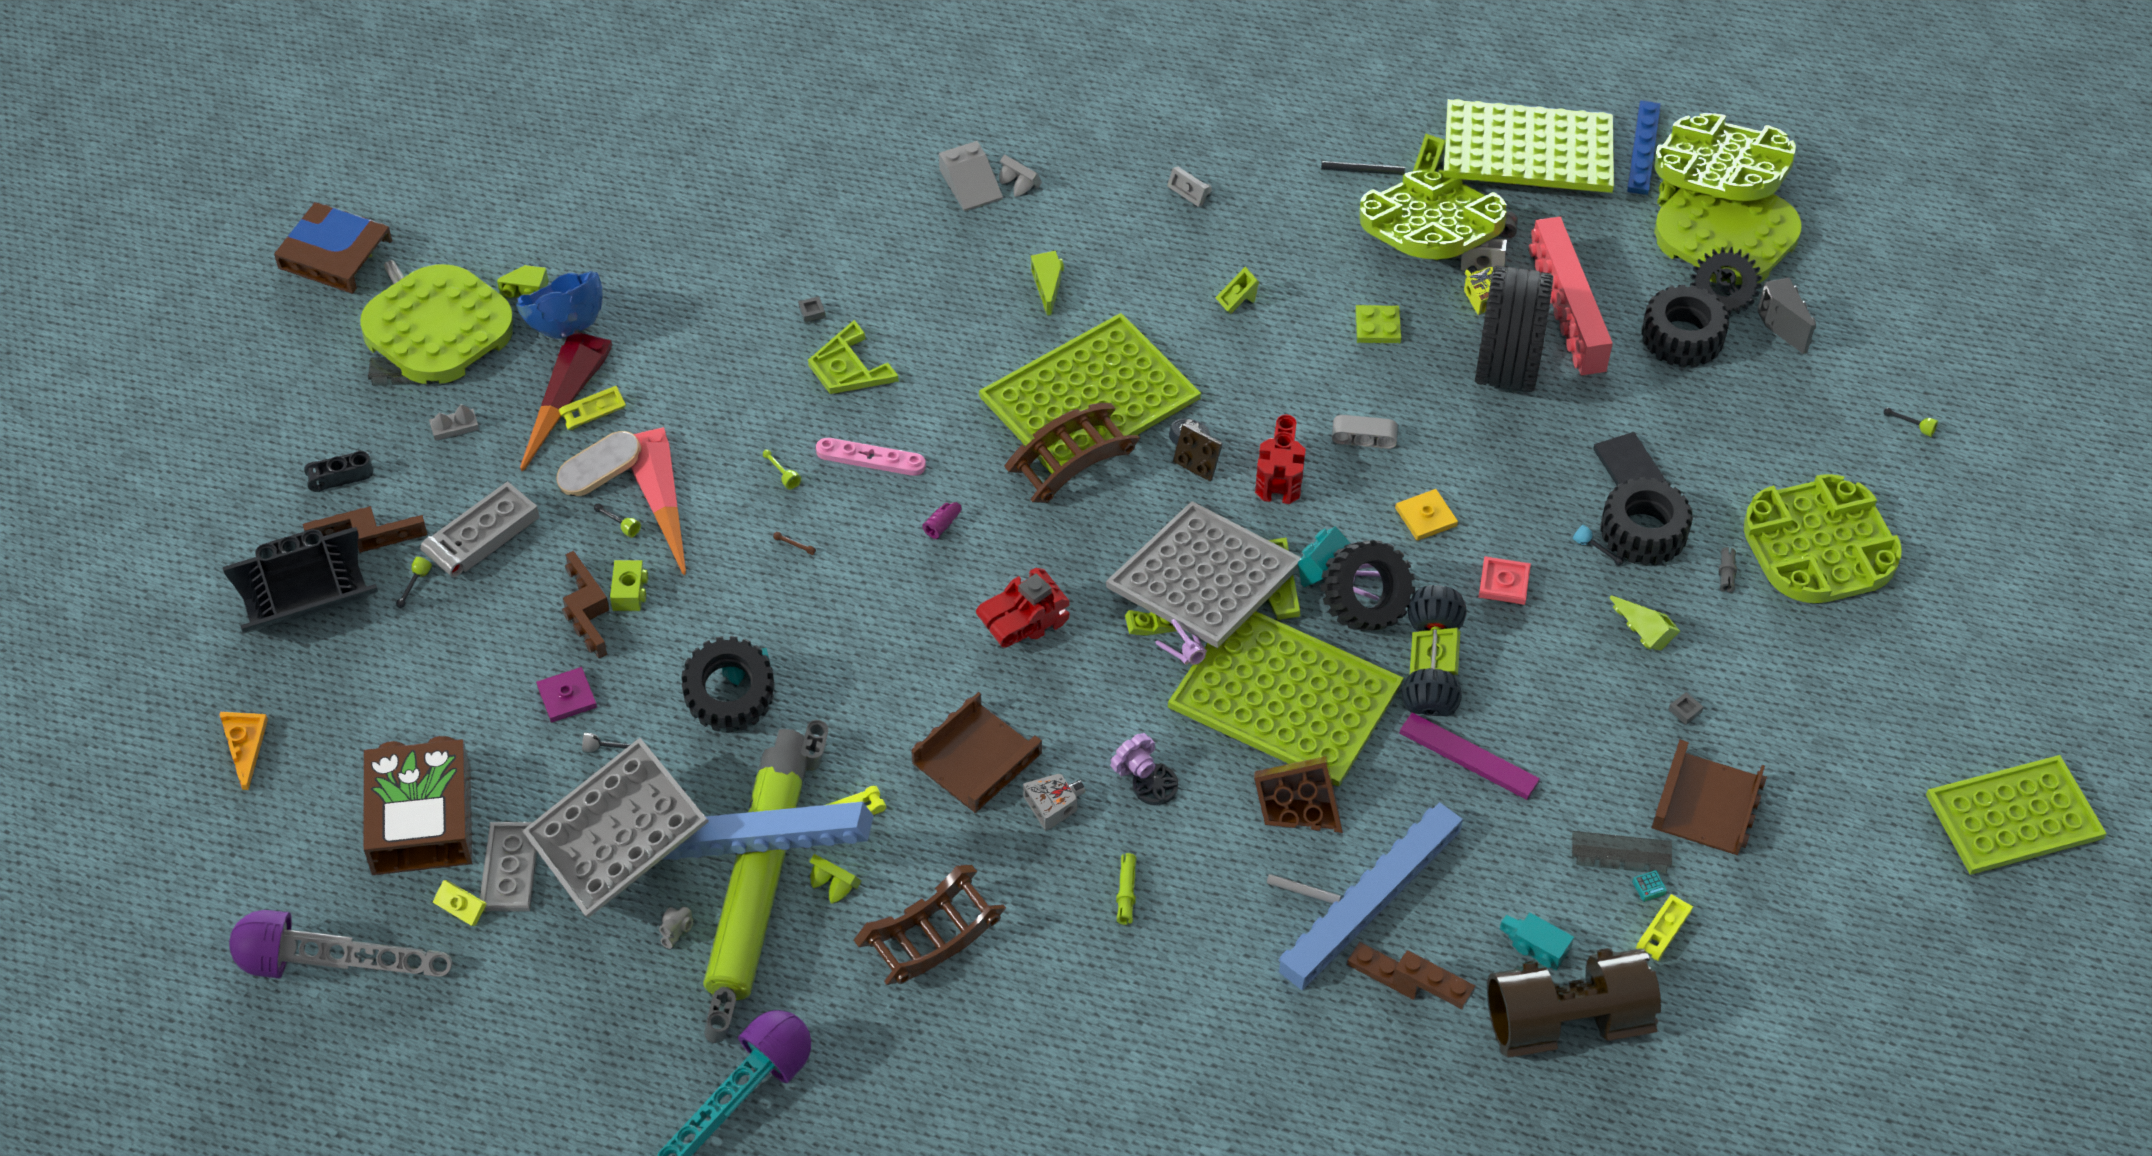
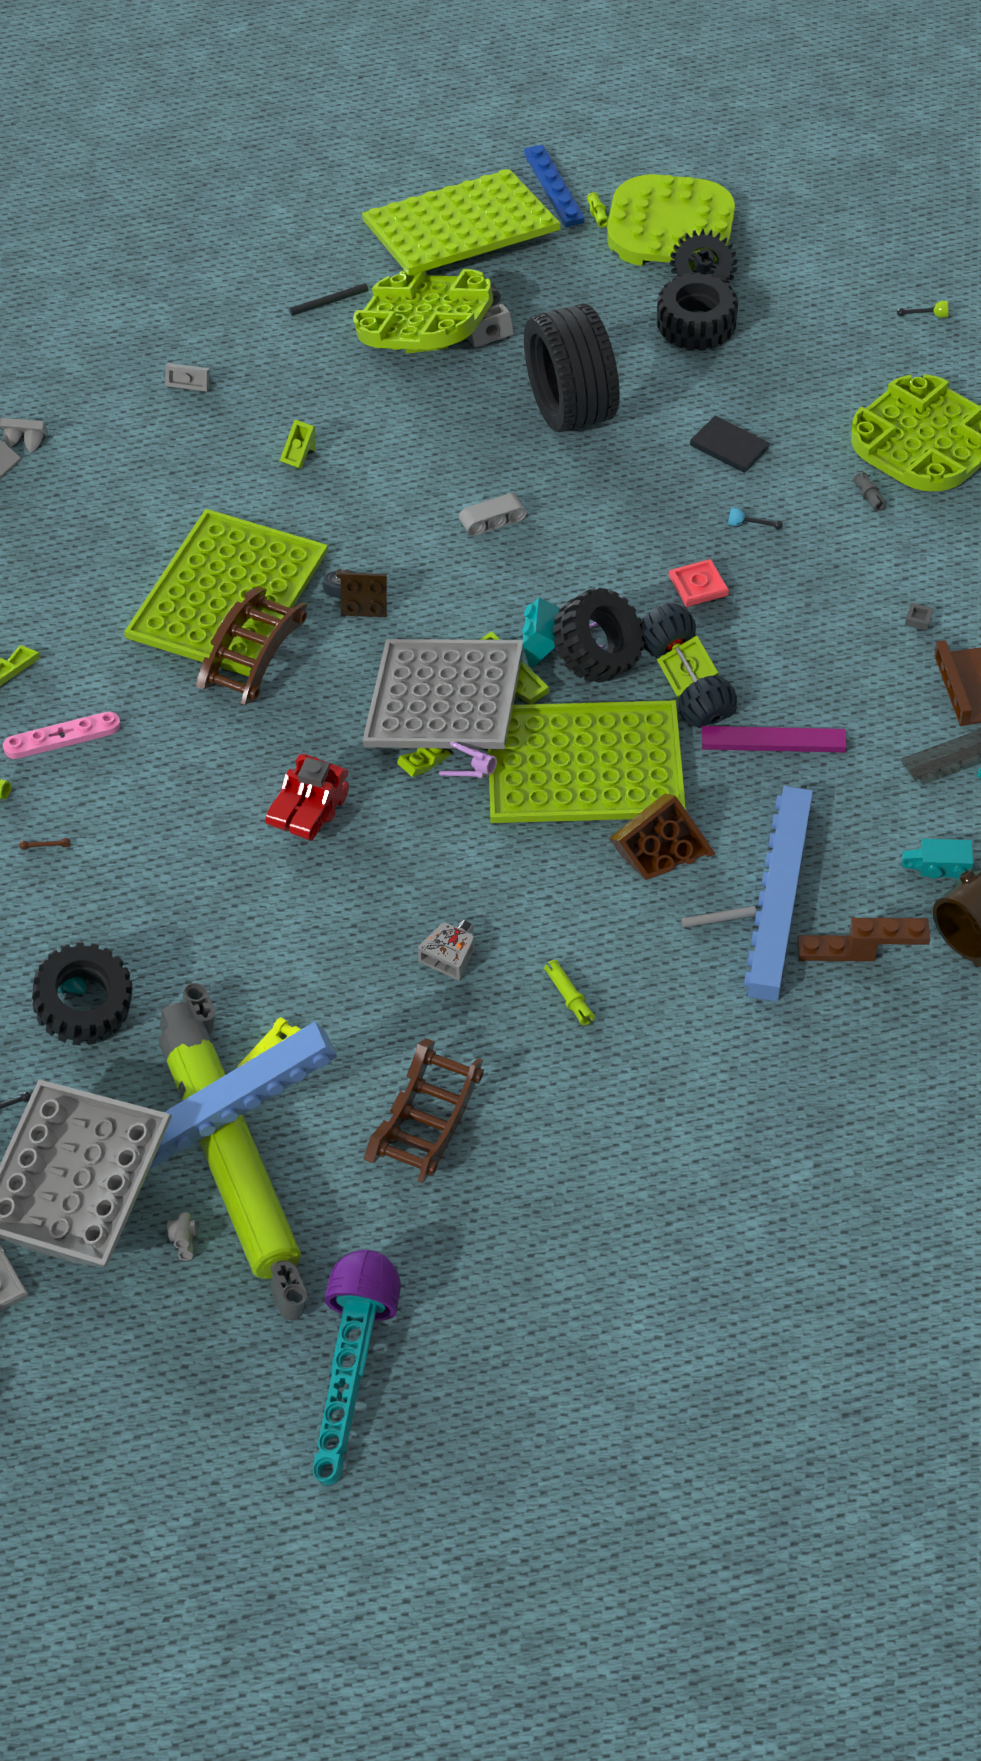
camera: 30 degrees left, 0 degrees up
(841, 882) = (310, 1114): lime tile -> none
(941, 519) = (170, 758): magenta hinge -> none
(974, 754) = (349, 946): reddish brown panel -> none
(1047, 275) = (113, 506): lime slope -> none
(1135, 757) = (500, 876): lavender plant -> none
(1155, 785) = (527, 892): black wheel -> none
(1281, 463) = (445, 570): red connector -> none
(1377, 324) = (436, 422): lime plate -> none
(1426, 514) = (593, 559): yellow plate -> none
(1430, 154) = (381, 261): lime slope -> none
(1477, 287) = (506, 353): neon yellow torso -> none
(1571, 296) = (634, 355): coral brick -> none
(1650, 499) = (778, 500): black tyre -> none
(1651, 625) = (844, 560): lime slope -> none
(1725, 158) = (632, 164): lime plate -> none
(1786, 314) = (772, 267): dark grey slope -> none

